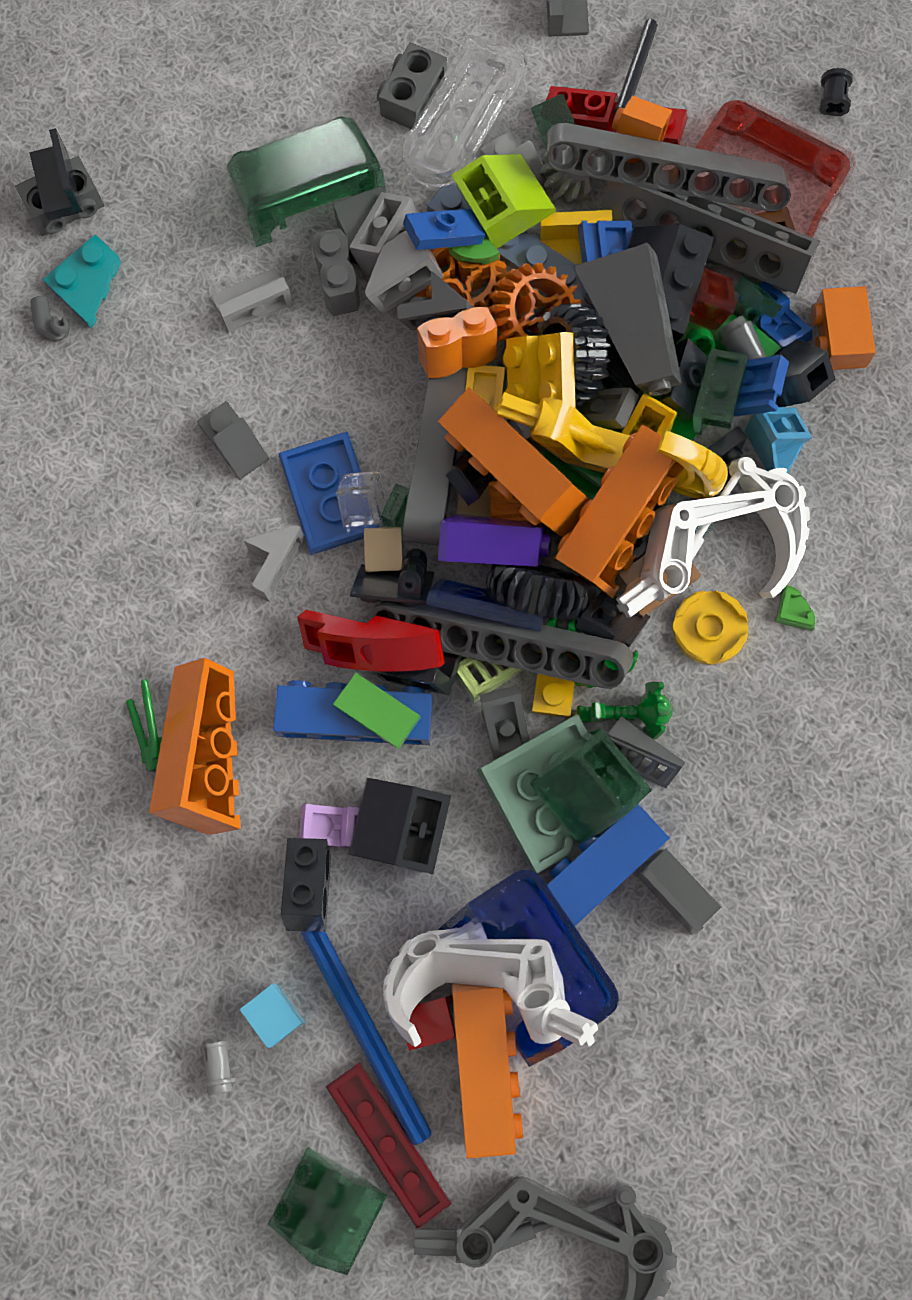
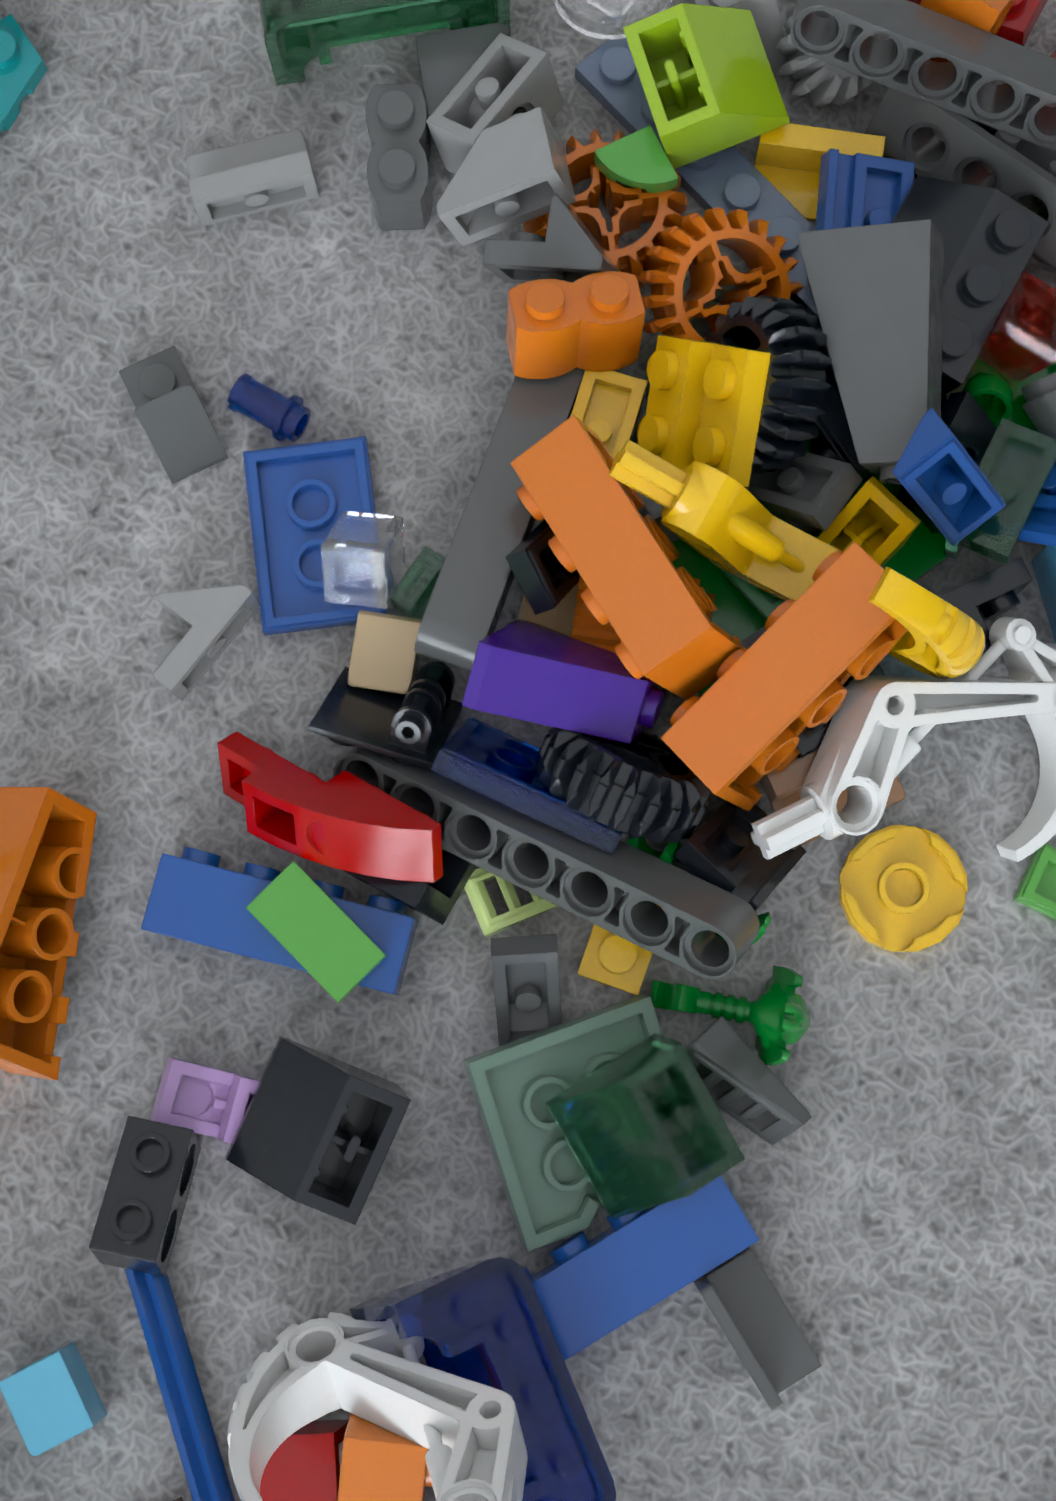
camera: 10 degrees right, 5 degrees up
(287, 425) = (269, 408): none -> clear blue pin
(443, 229) = (589, 121): blue plate -> none
(686, 384) = (946, 480): none -> blue slope

